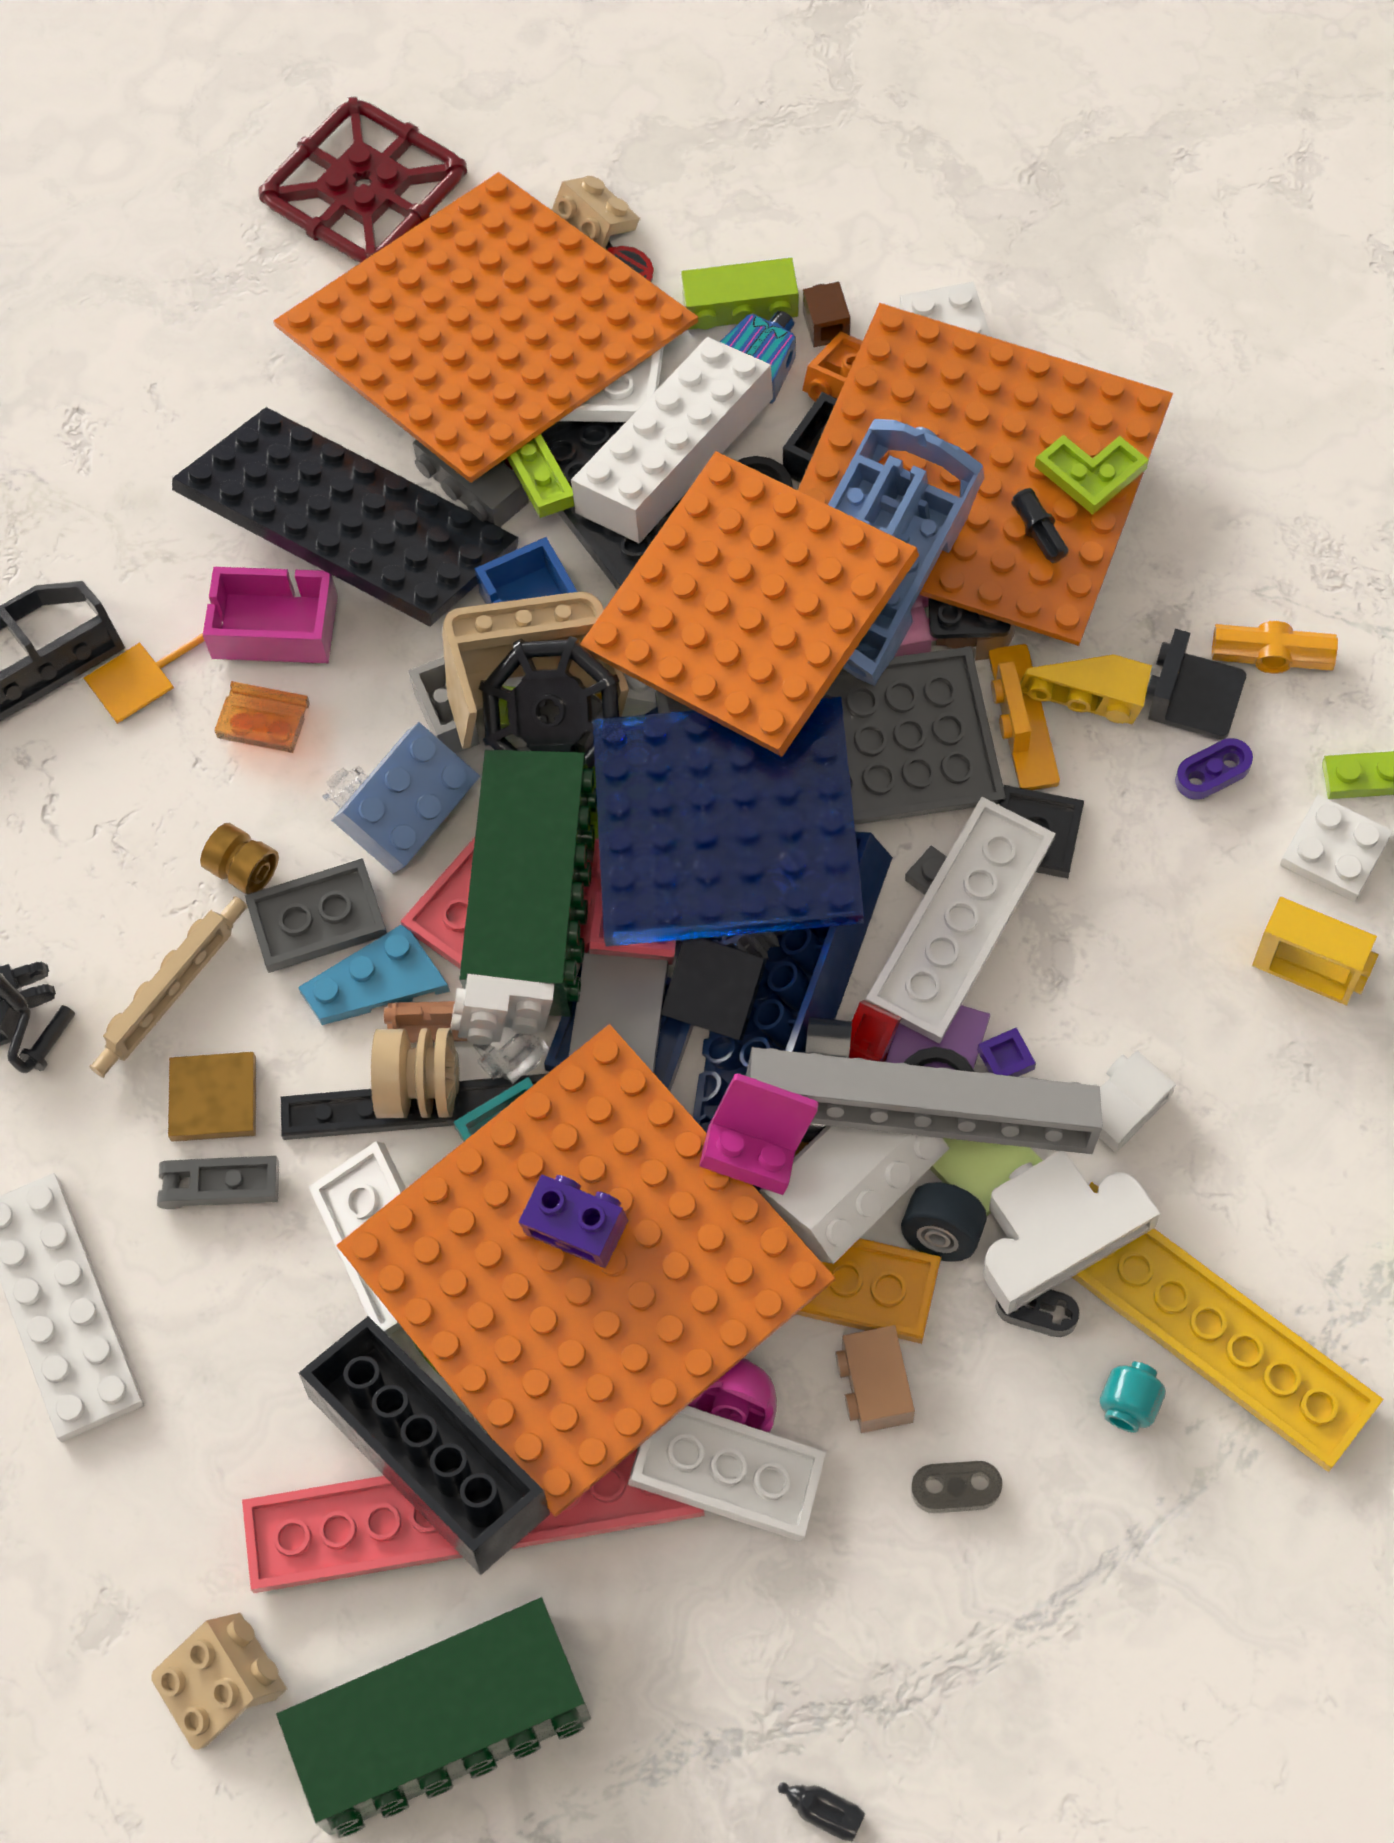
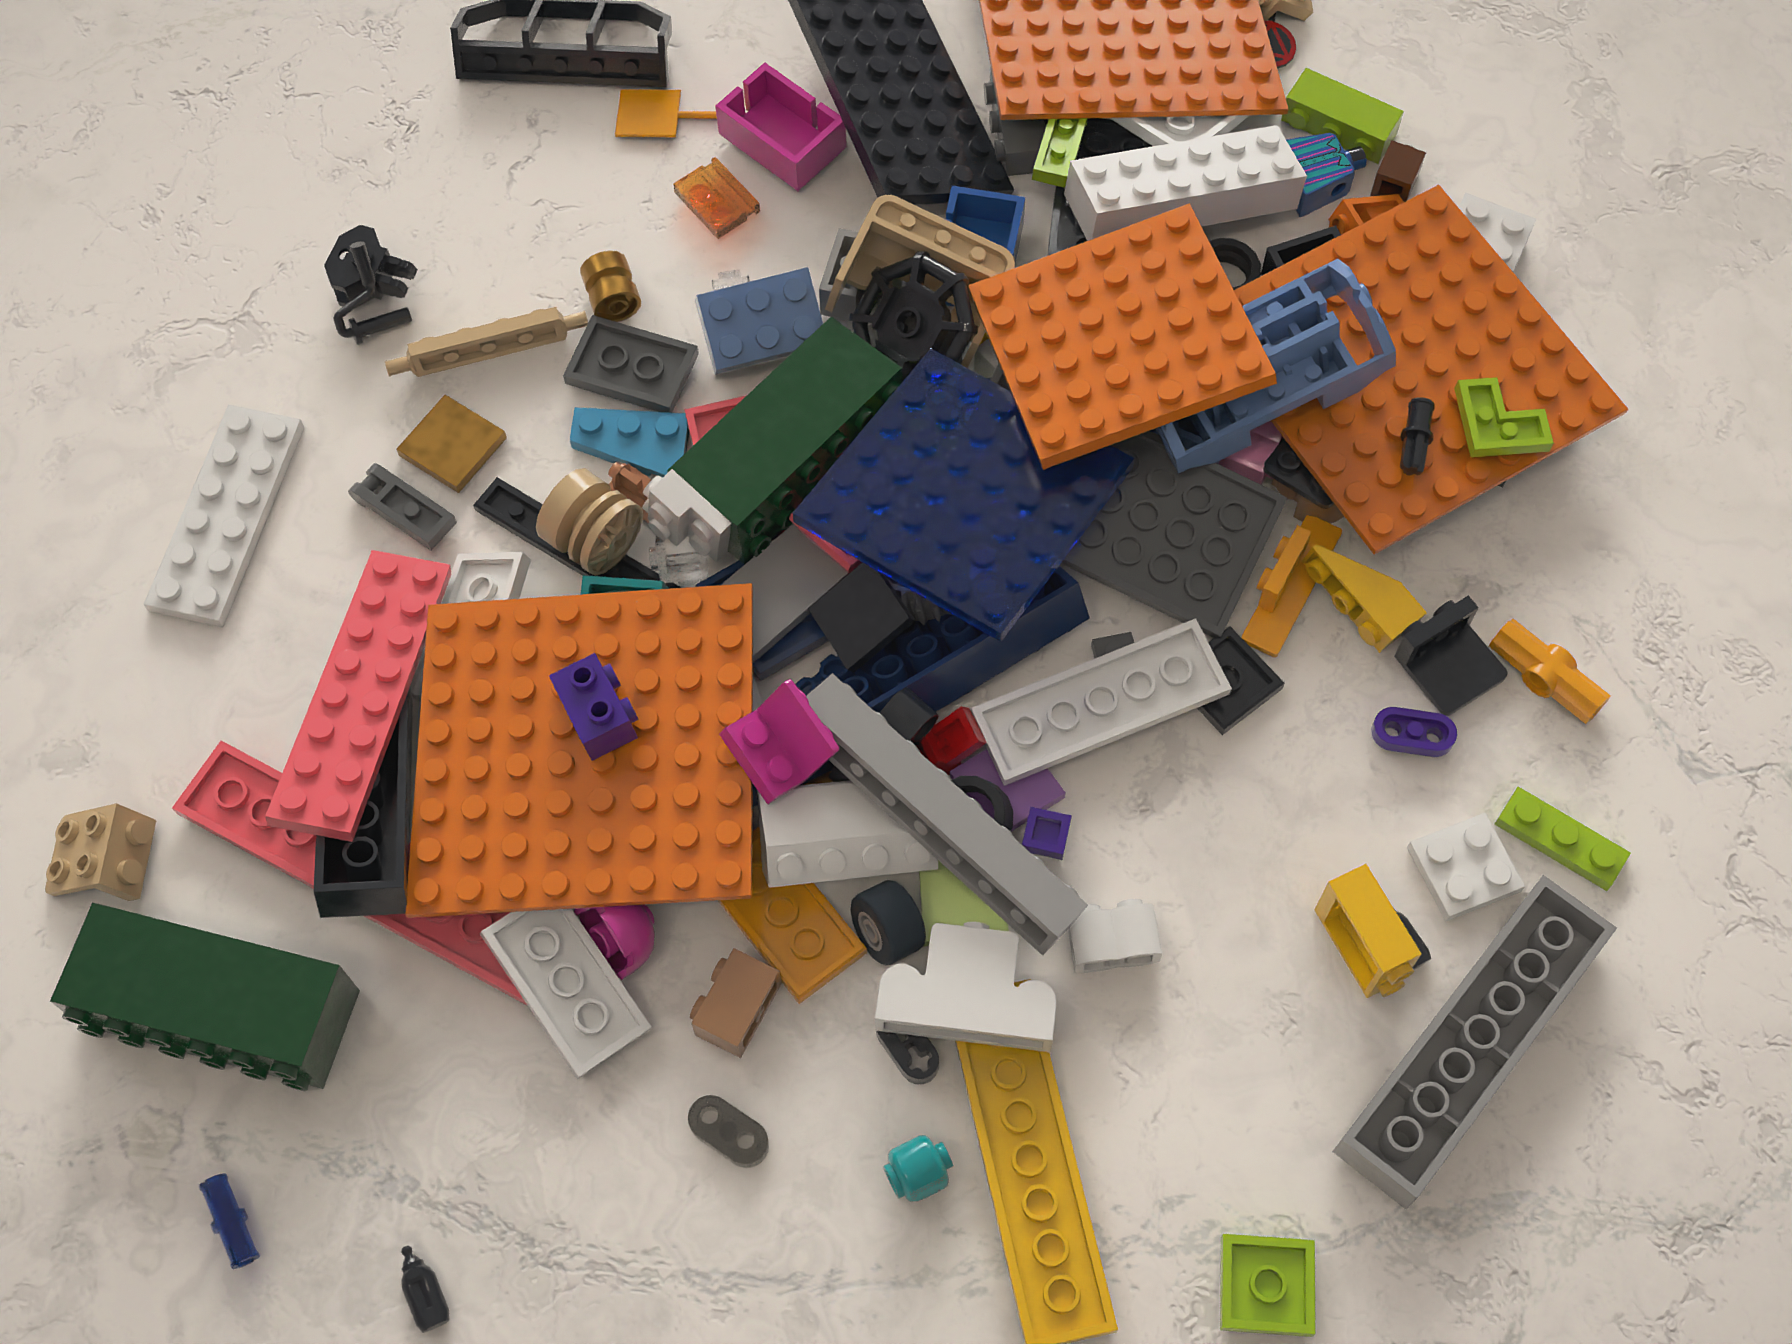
camera: 35 degrees right, 0 degrees up
(350, 1365) = (358, 698): none -> coral plate

